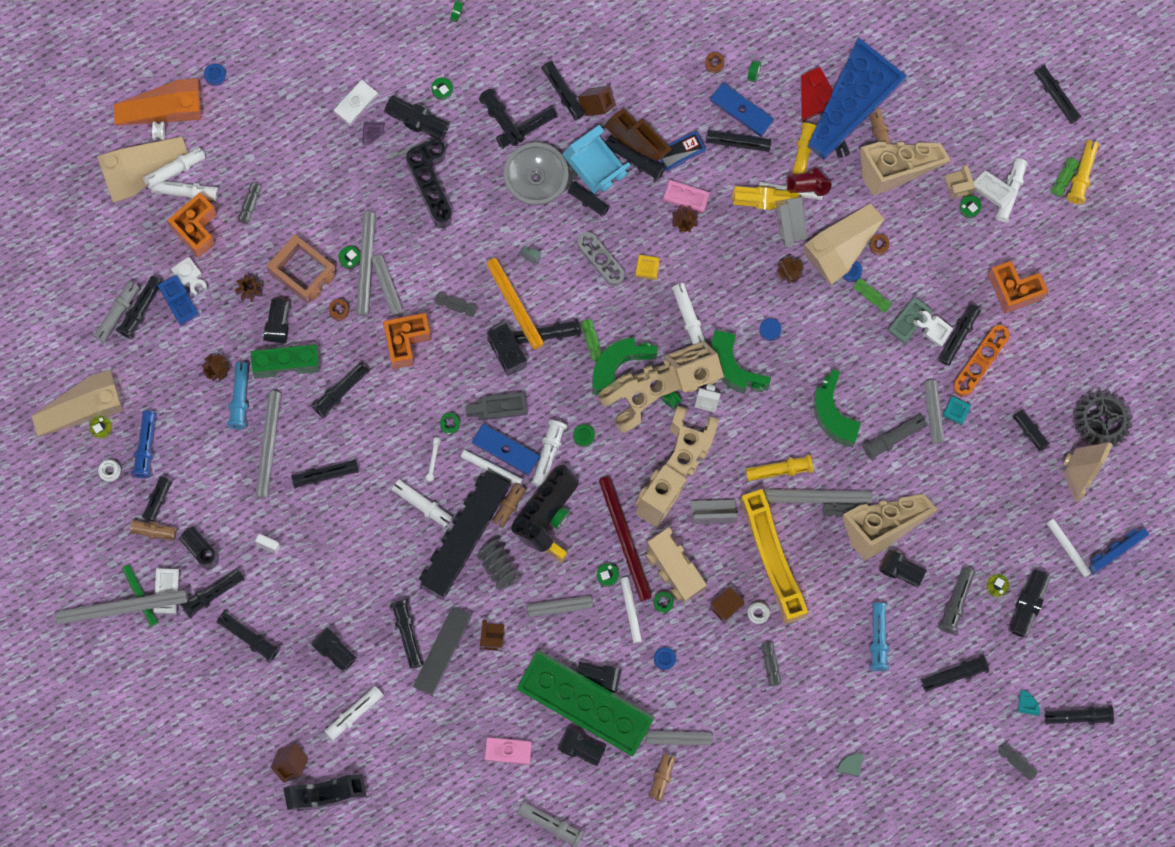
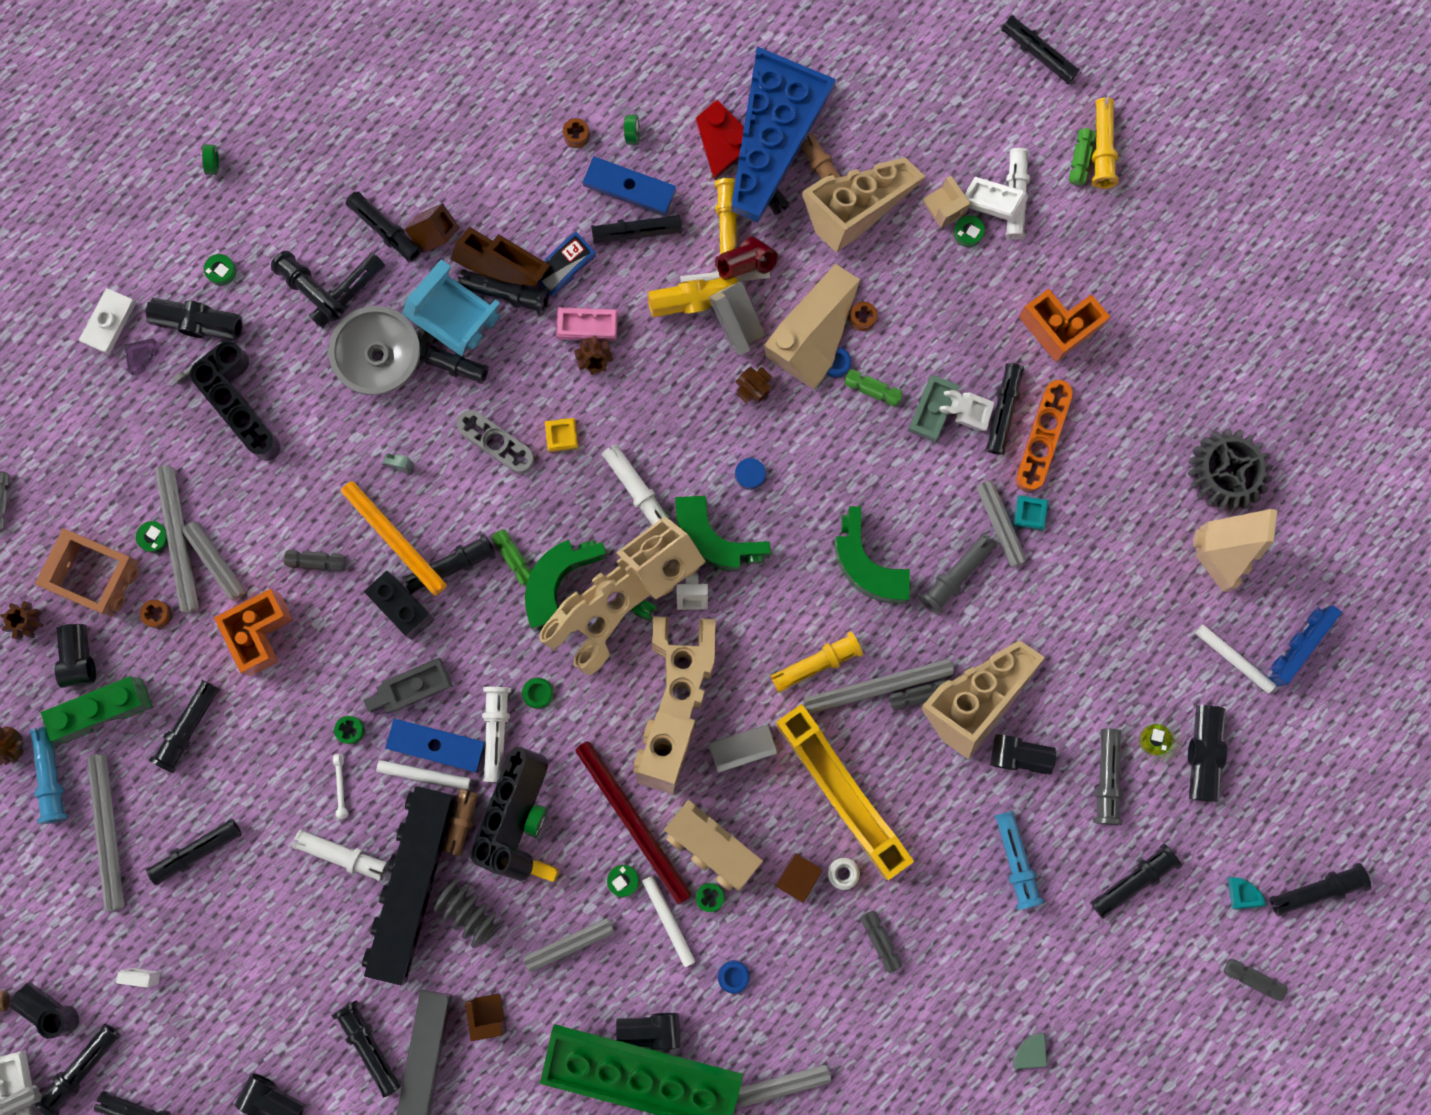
camera: 10 degrees left, 5 degrees up
(1031, 430) = (1138, 512): black pin -> none

